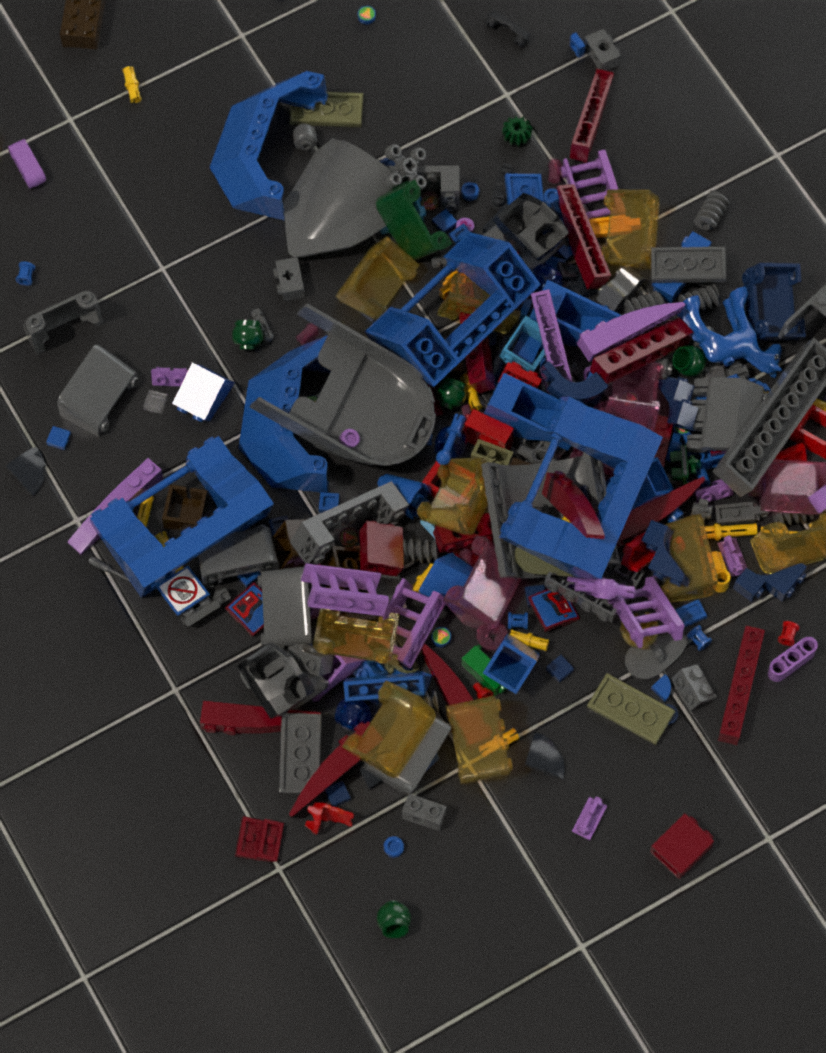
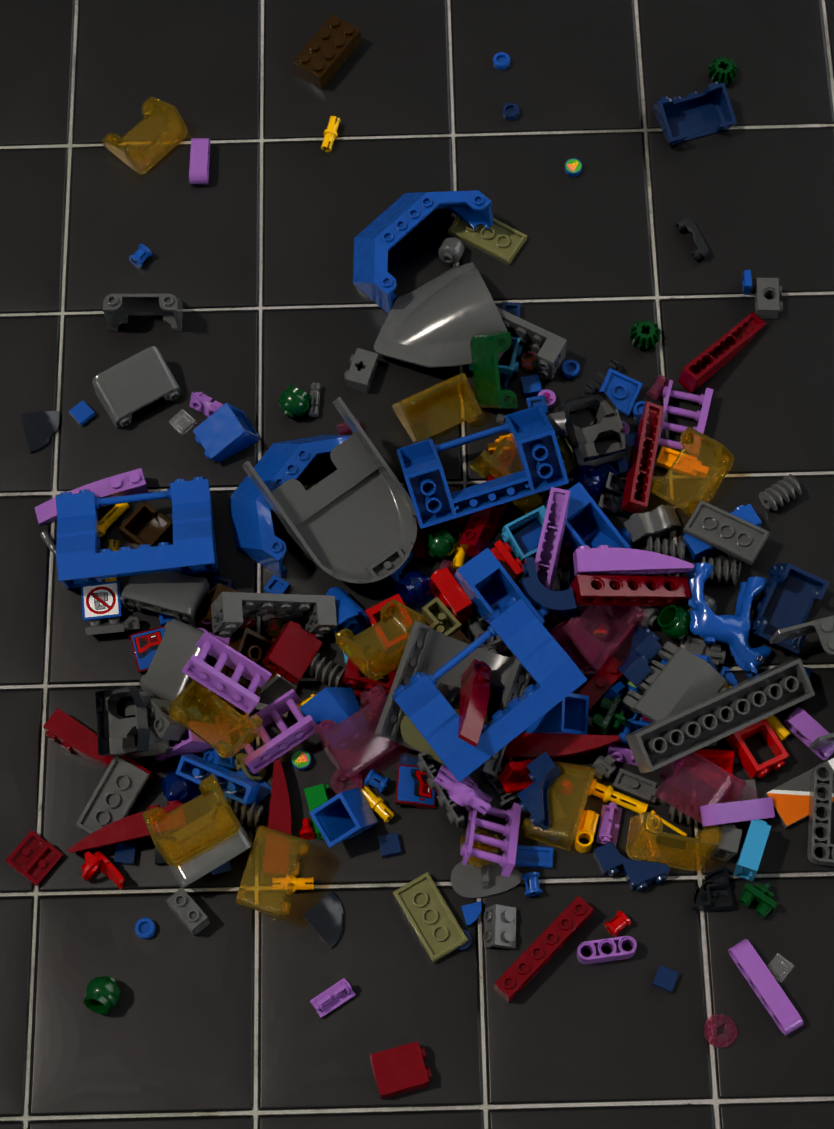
camera: 30 degrees right, 0 degrees up
(349, 438) = (320, 538): medium lavender tile -> none
(404, 166) = (521, 317): dark grey gear -> none
(444, 457) = (394, 597): blue pin -> none
(676, 515) = (579, 759): blue tile -> none

